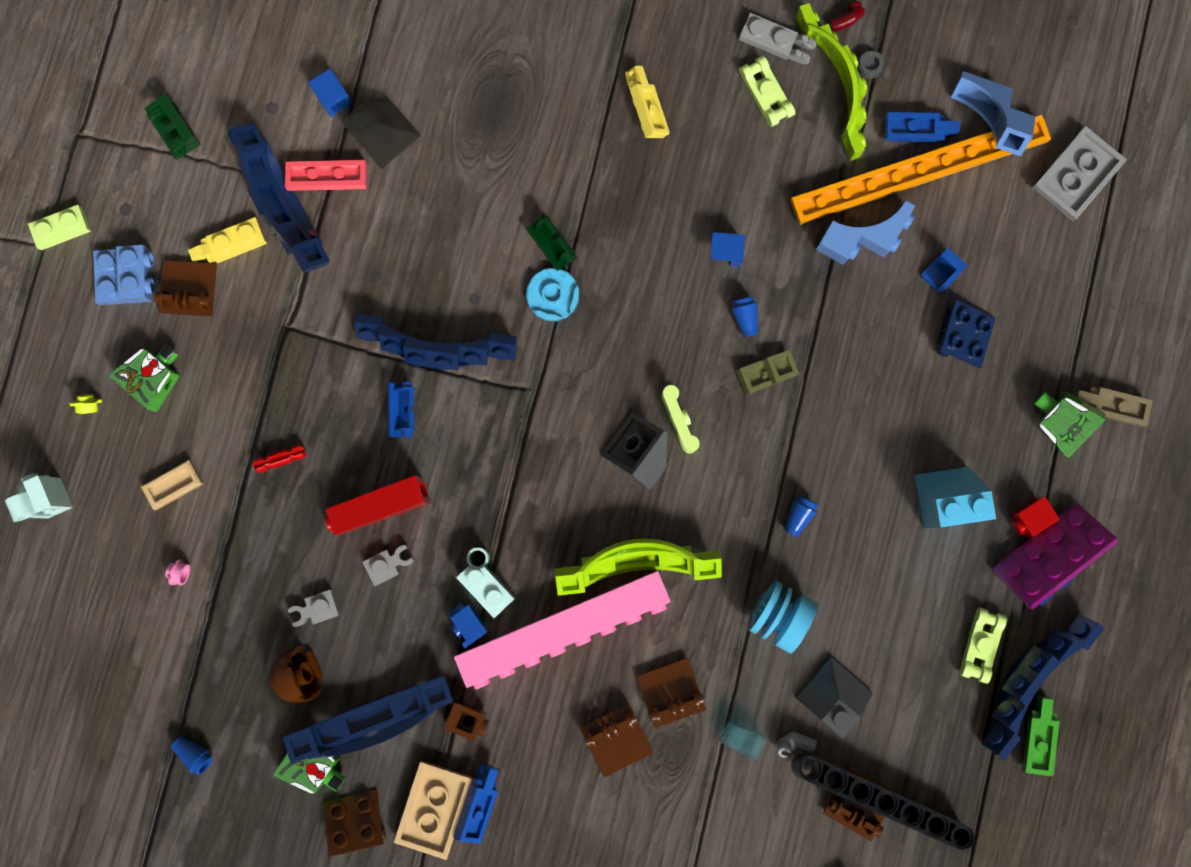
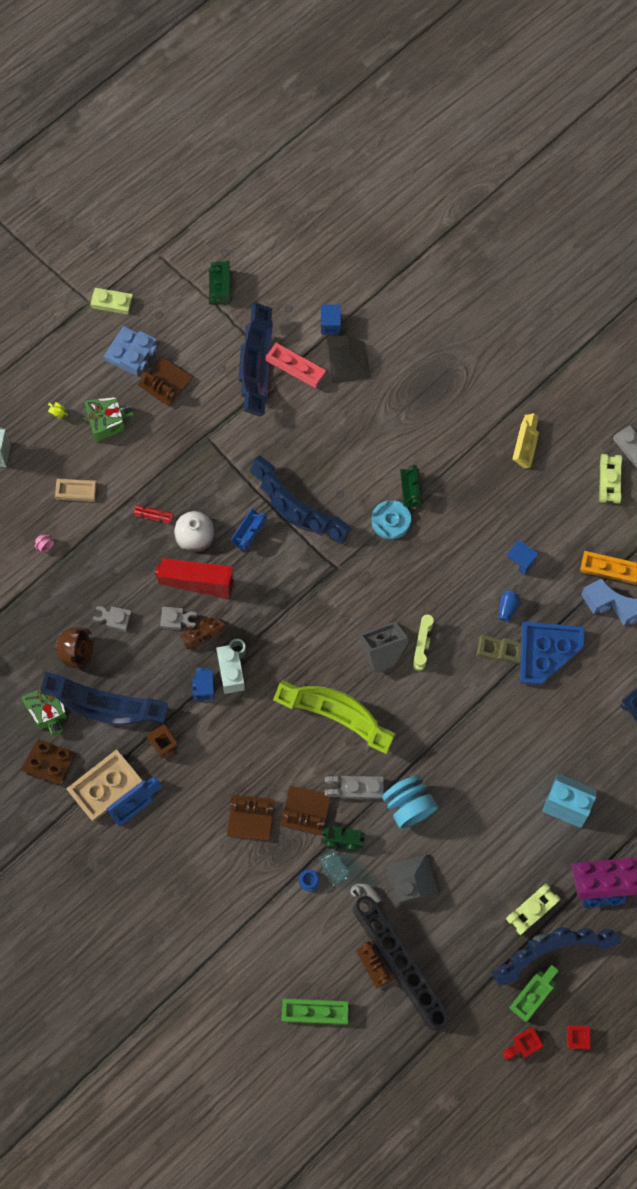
camera: 30 degrees right, 15 degrees down
(229, 242) = (209, 370): light yellow hinge -> none
(340, 449) = (194, 531): none -> white cylinder
(426, 566) = (209, 626): none -> reddish brown hinge
(562, 629) = (262, 725): bright pink brick -> none
(710, 632) = (356, 787): none -> light grey hinge
(725, 769) = (309, 880): none -> blue plate
(743, 699) = (350, 840): none -> dark green hinge
(800, 515) = (464, 749): blue cone -> none
(820, 341) = (547, 649): none -> blue plate
(1033, 517) = (619, 846): red brick -> none
(1065, 799) = (525, 1043): none -> red plate
(1115, 756) = (578, 1037): none -> red plate

